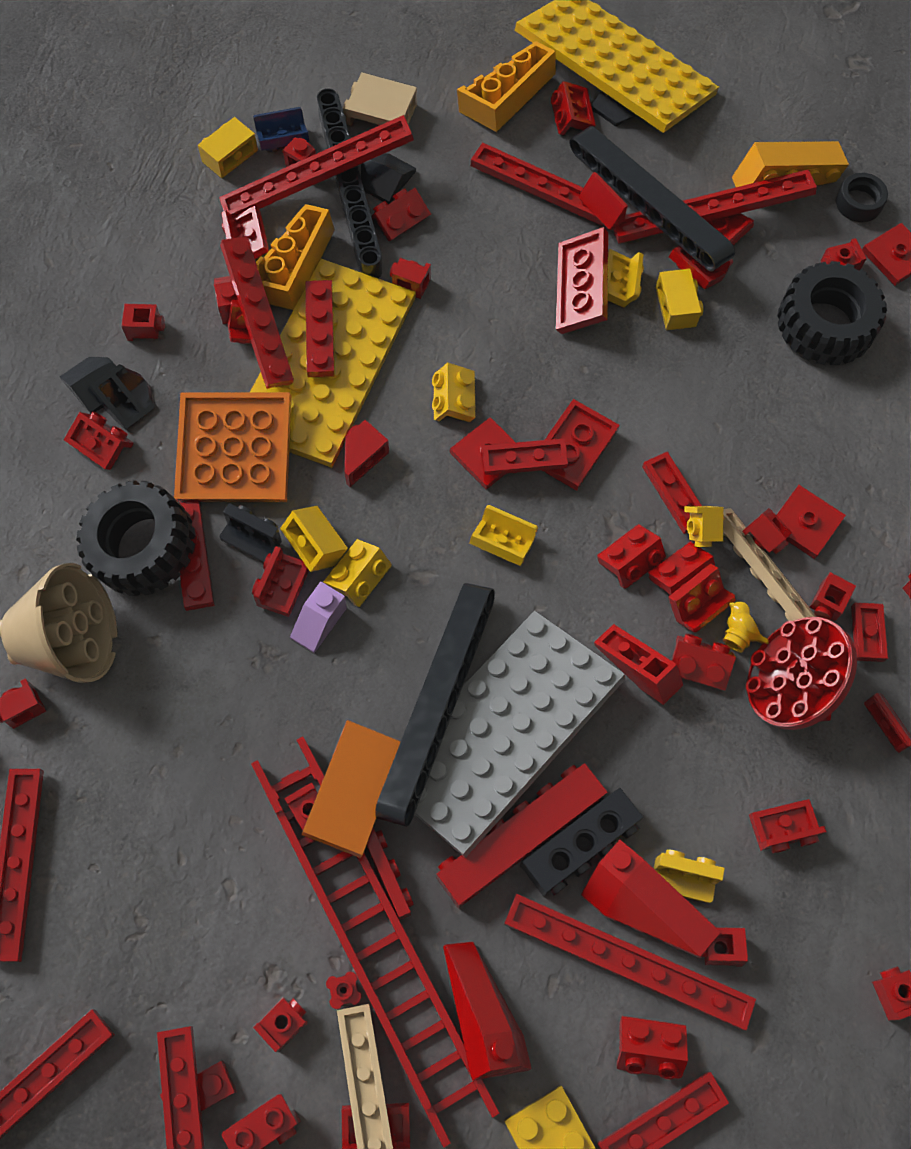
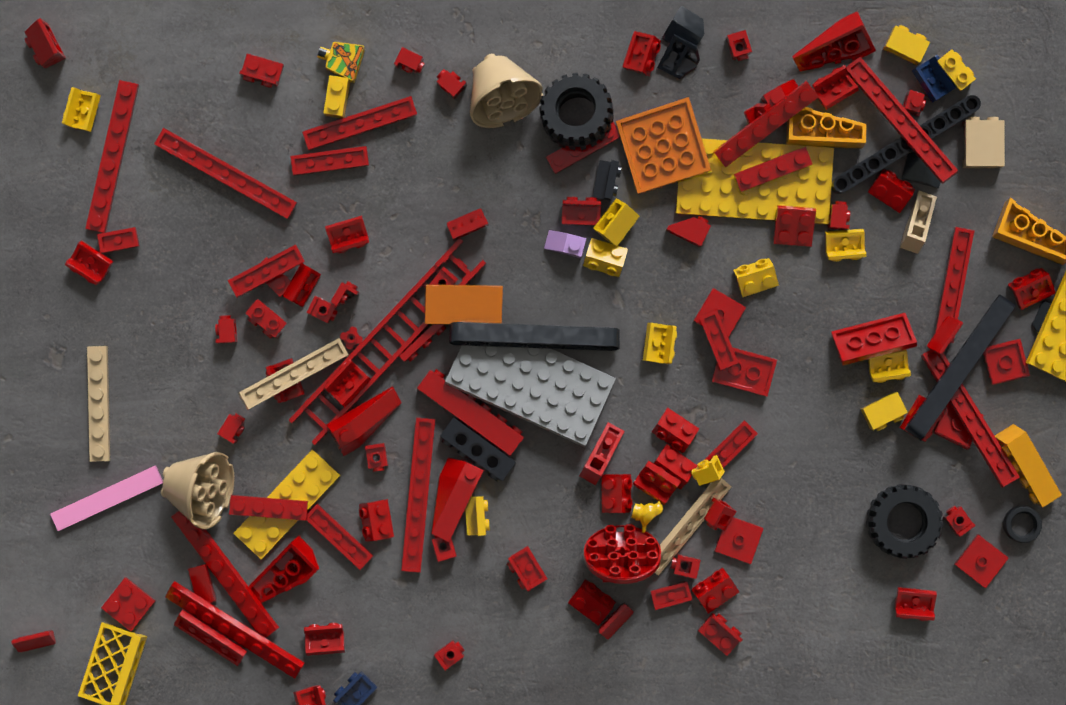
camera: 75 degrees right, 20 degrees up
(51, 932) = (329, 160): none -> red plate
(178, 941) = (347, 234): none -> red bracket
(192, 212) = (840, 42): none -> red wedge
(228, 1046) = (301, 285): none -> red slope
(236, 747) = (467, 224): none -> red bracket
(266, 977) = (340, 296): none -> red bracket
(280, 100) = (956, 69): none -> yellow bracket
(403, 327) = (794, 226): none -> red plate
(414, 1019) = (347, 383): none -> red bracket
(449, 280) = (845, 245): none -> yellow bracket
(454, 196) = (918, 222): none -> tan slope
(536, 1015) = (379, 449): none -> red brick
(657, 155) = (1006, 362): none -> red plate
(857, 746) = (592, 602): none -> red bracket
(872, 571) = (715, 590): none -> red bracket

